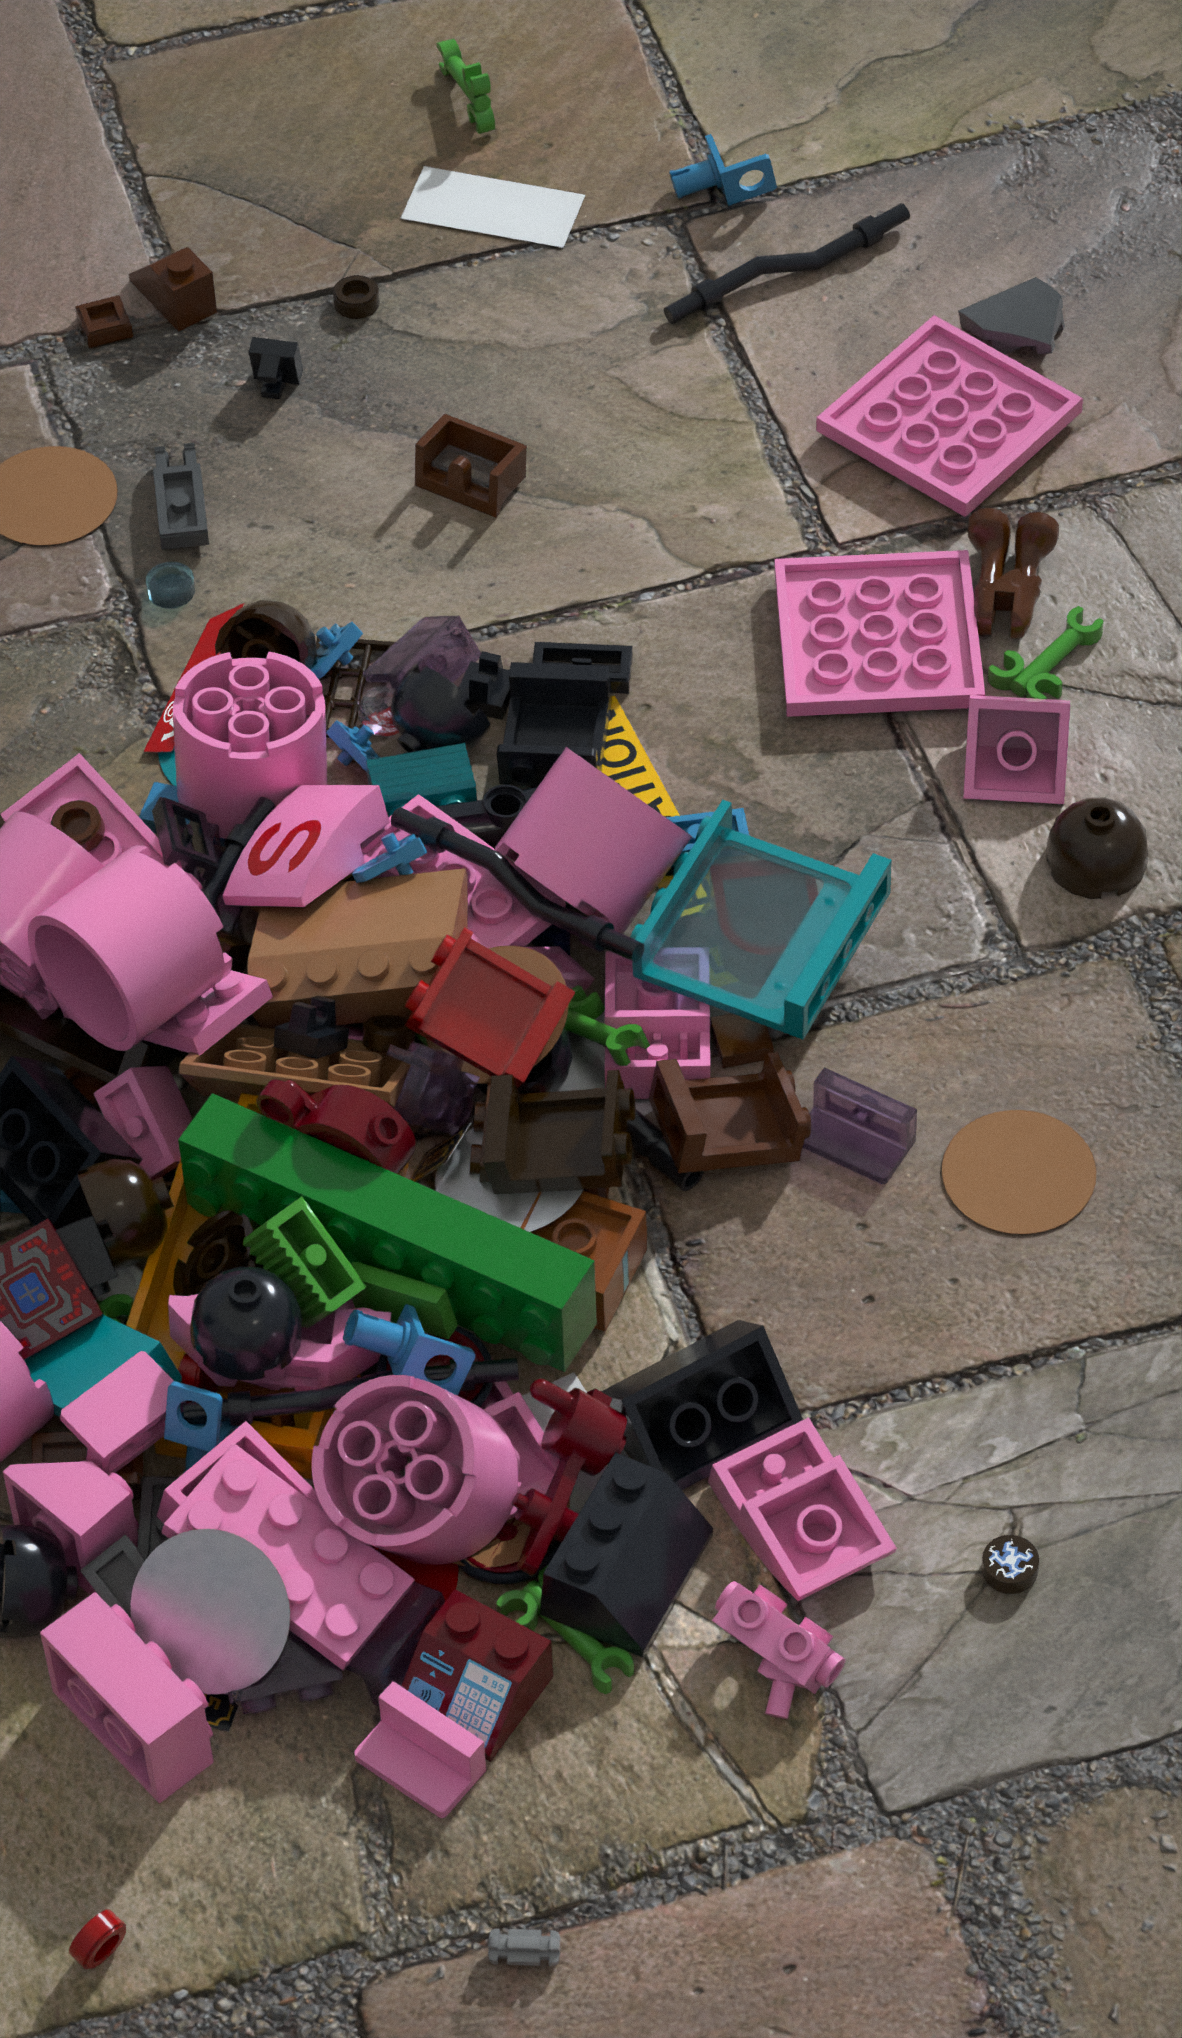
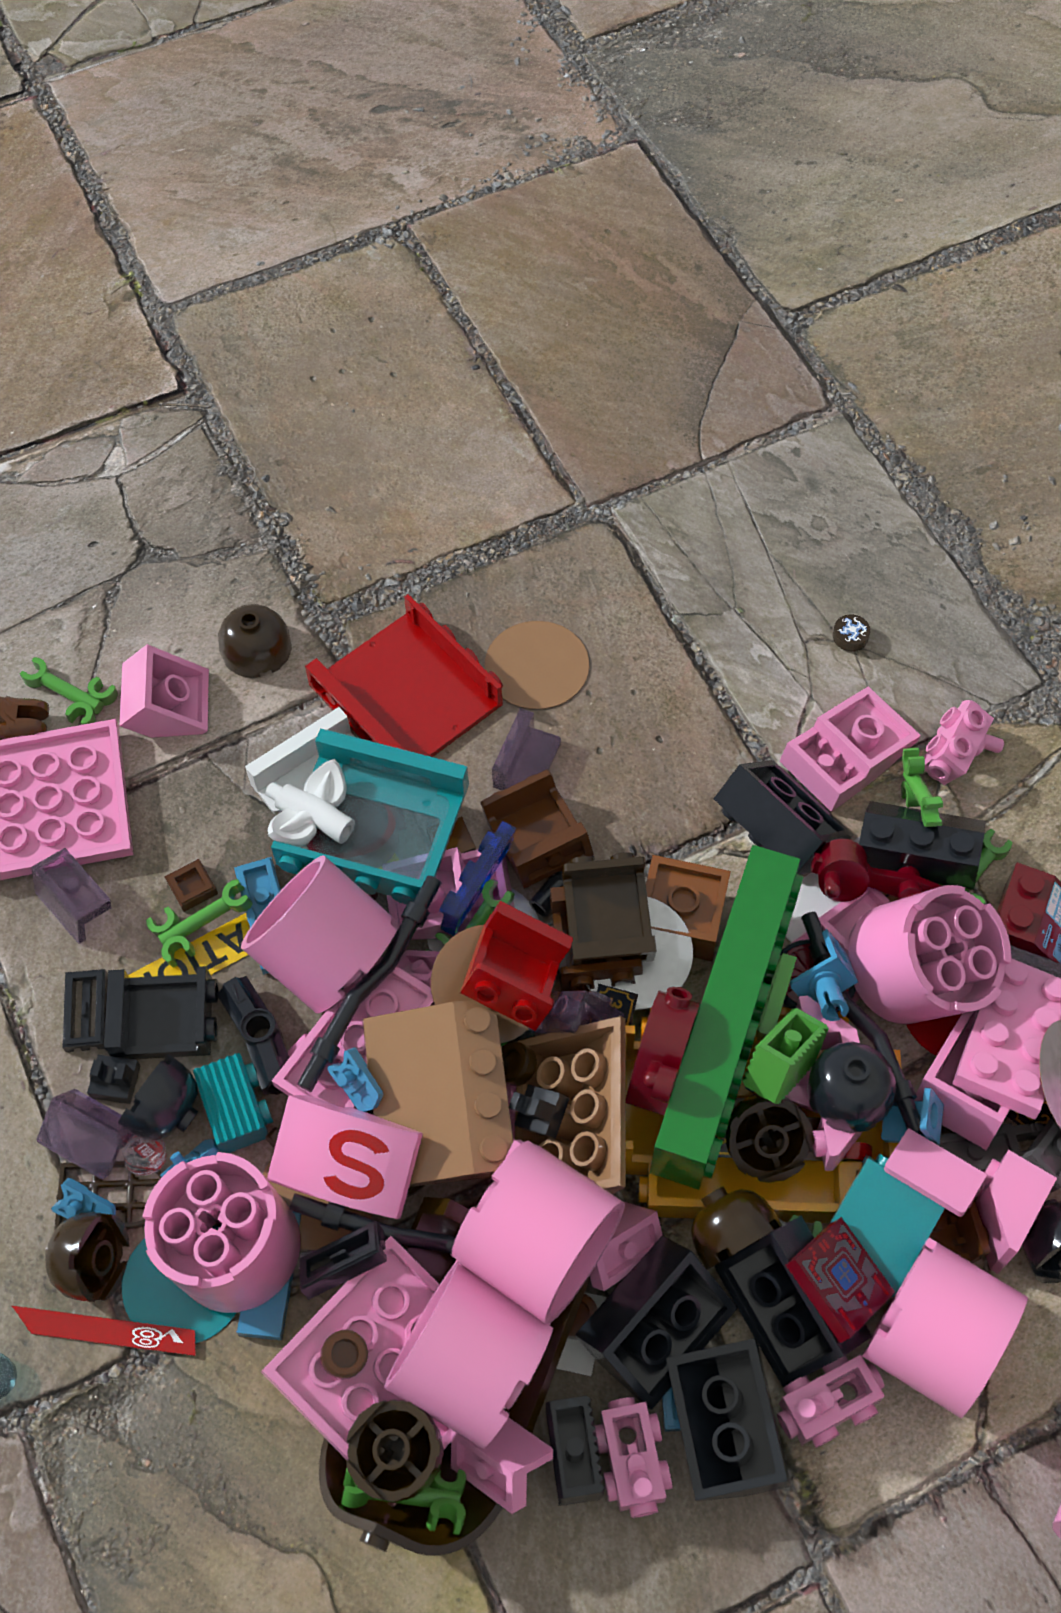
camera: 100 degrees left, 10 degrees up
(617, 998) = (474, 876): none -> clear blue plate
(668, 750) = (173, 932): none -> bright green bar
(706, 1561) = (915, 789): none -> bright green bar
(731, 640) = (69, 892): none -> clear purple panel
(732, 771) = (191, 885): none -> reddish brown tile
(780, 853) = (311, 808): none -> white plant
(915, 916) = (294, 758): none -> white panel
(986, 1005) = (409, 685): none -> red panel

